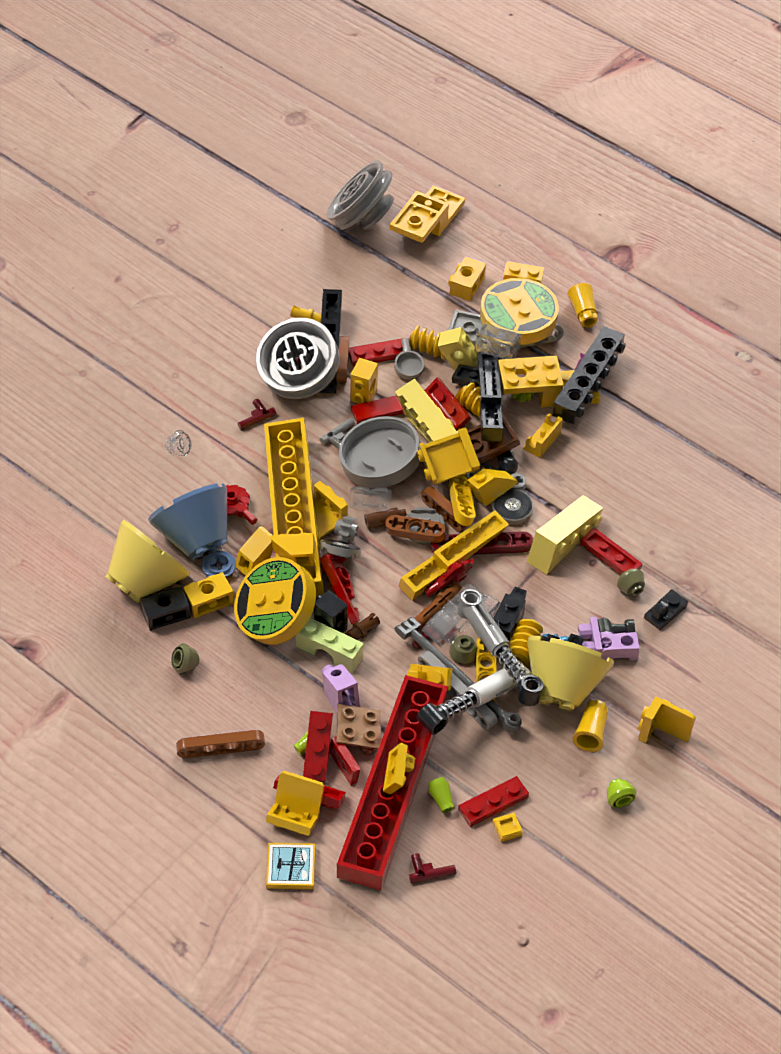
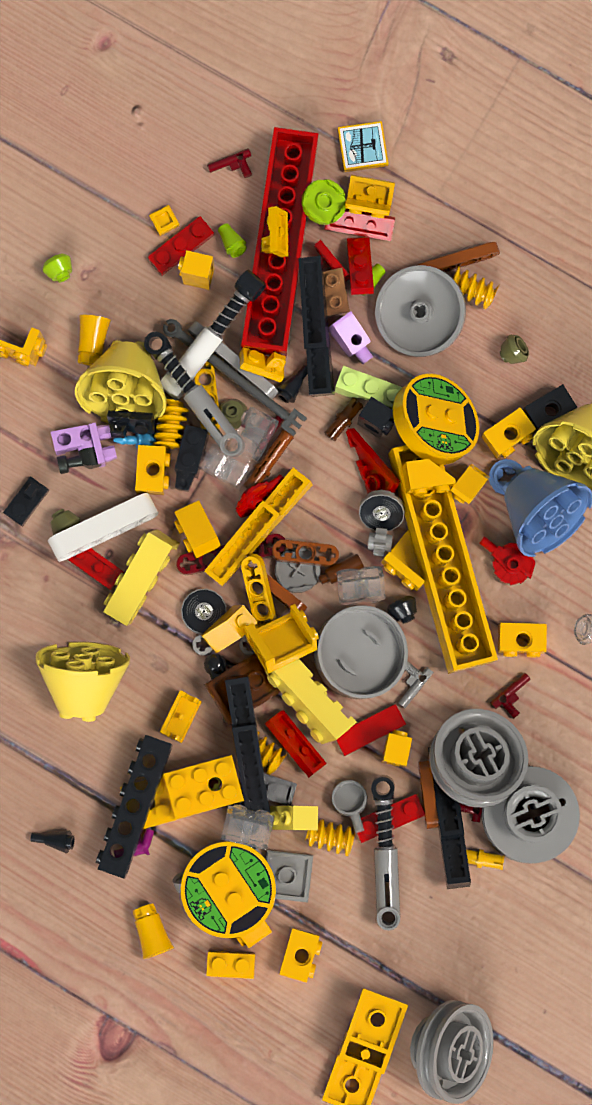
camera: 170 degrees right, 30 degrees up
(210, 715) = (475, 289): none -> yellow piece
(237, 447) = (535, 634): none -> yellow brick
(251, 323) = (543, 844): none -> light grey wheel
(267, 699) = (420, 311): none -> light grey dish
(337, 479) = (403, 609): none -> black cone
(343, 799) = (324, 202): none -> lime tile
(372, 696) = (316, 327): none -> black slope
(387, 322) = (386, 855): none -> piece
(402, 663) = (289, 389): none -> black cone
(481, 763) = (196, 269): none -> yellow brick
(510, 558) = (197, 529): none -> yellow brick
(551, 603) = (147, 457): none -> yellow brick
(595, 570) = (103, 527): none -> white beam
(624, 464) = (82, 676): none -> light yellow cone
(654, 371) = (60, 840): none -> black cone

